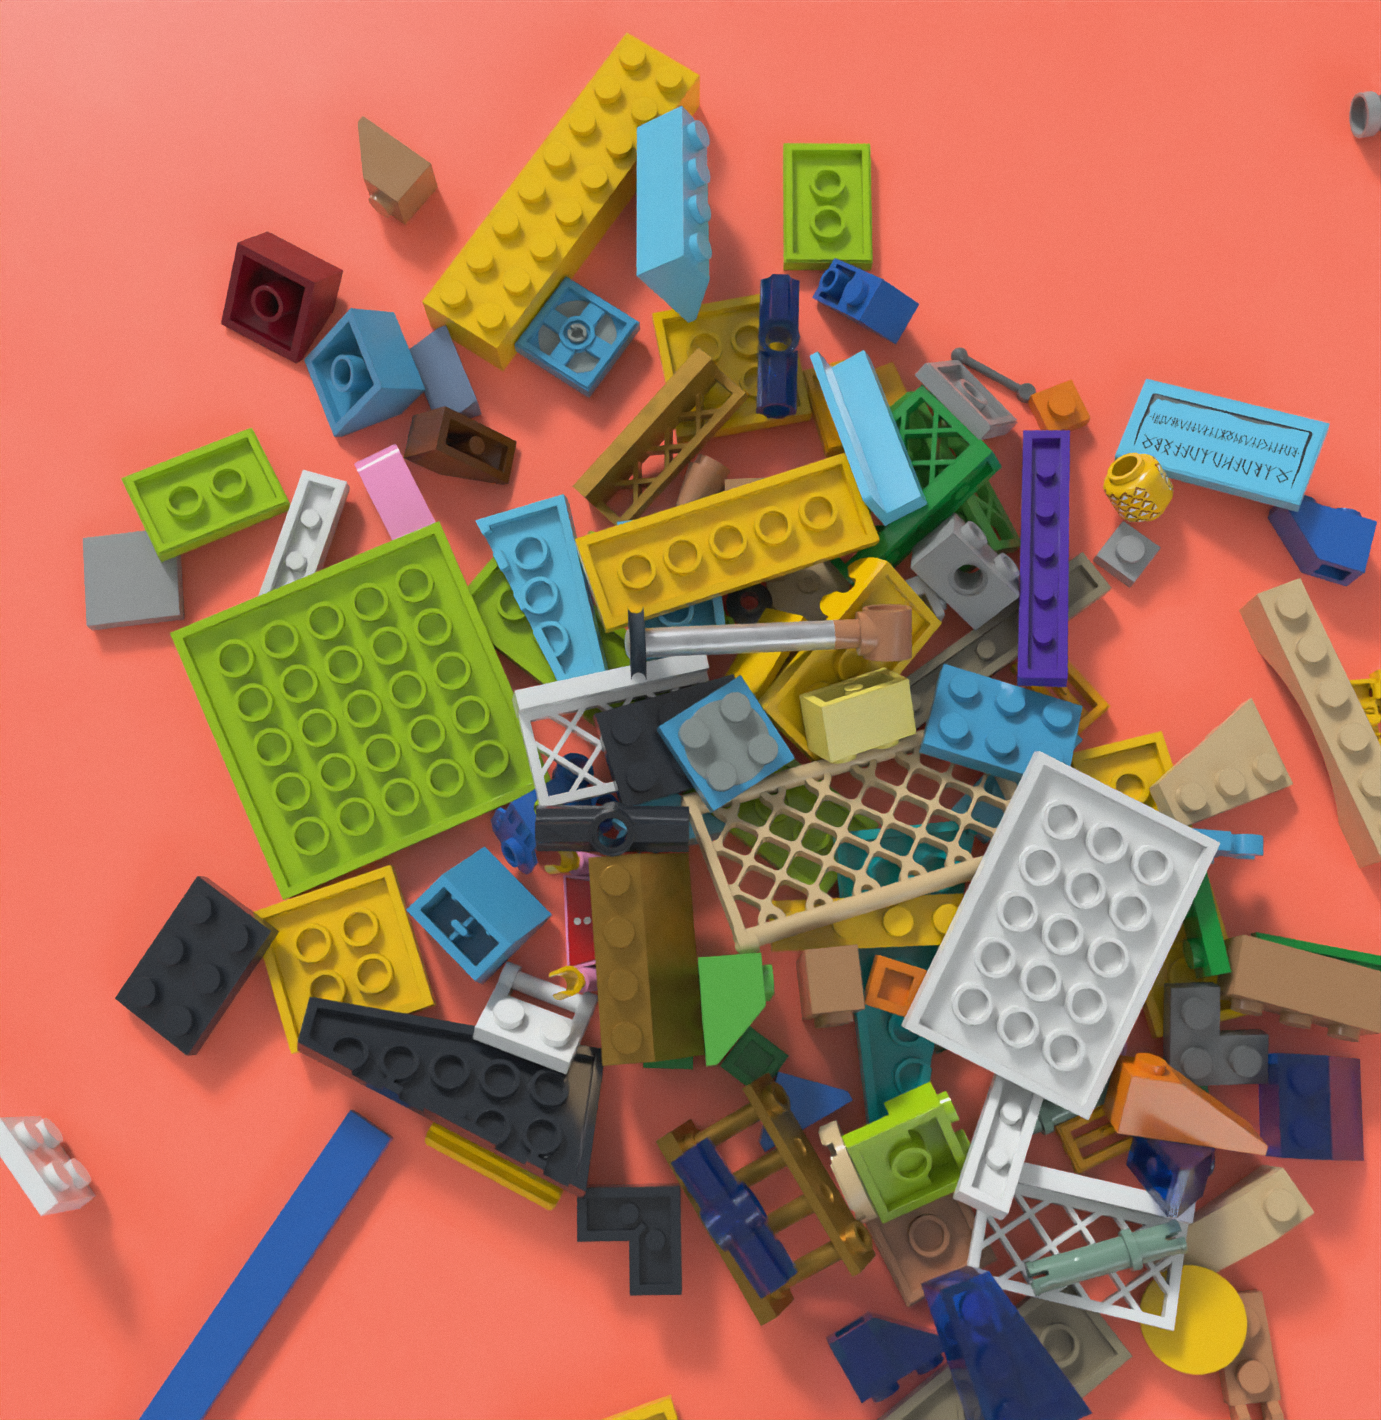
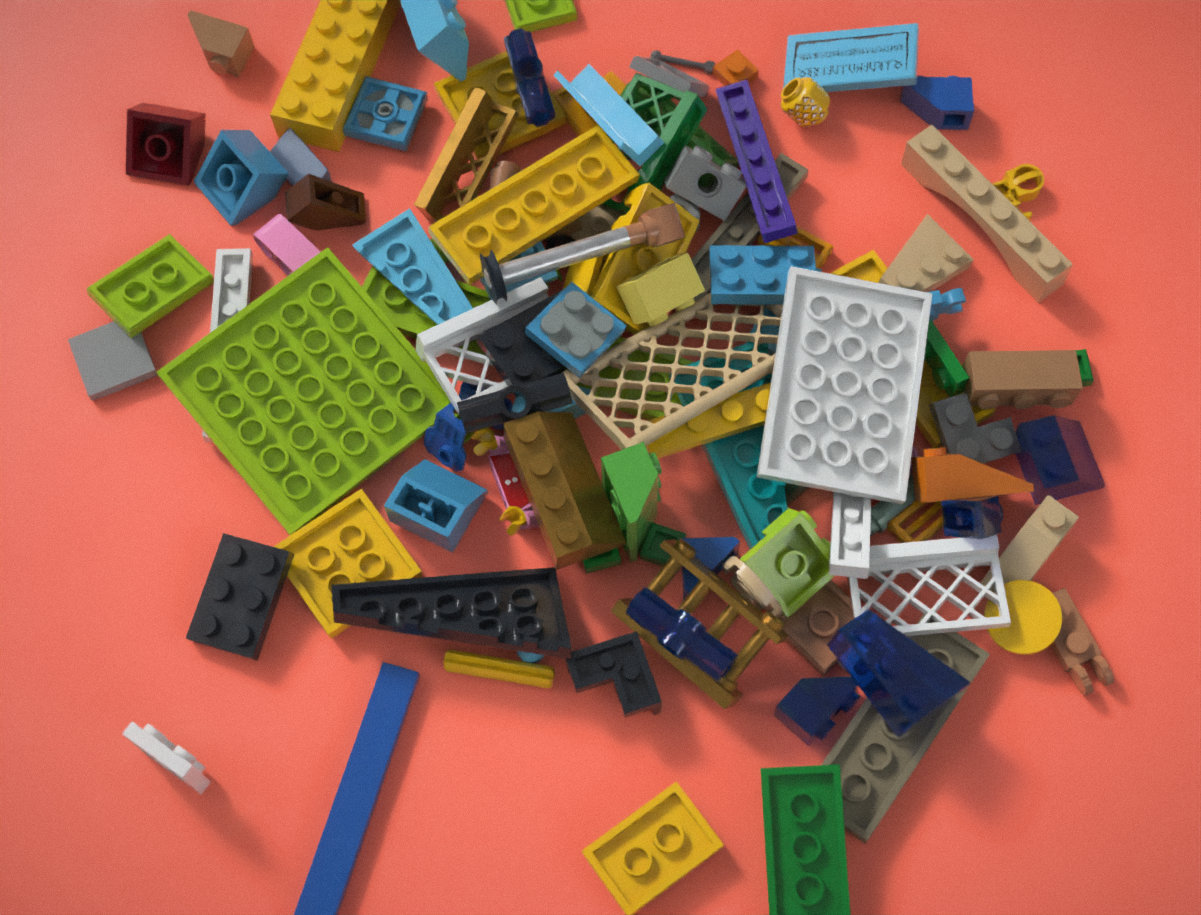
camera: 15 degrees left, 10 degrees down
(529, 1029) = (488, 561): white plate -> none
(830, 985) = (698, 465): medium nougat brick -> none
(865, 300) = (580, 35): blue slope -> none
(892, 985) = (742, 455): orange plate -> none
(1106, 1257) = (960, 578): sand green pin -> none
(1126, 554) = (812, 148): light grey plate -> none

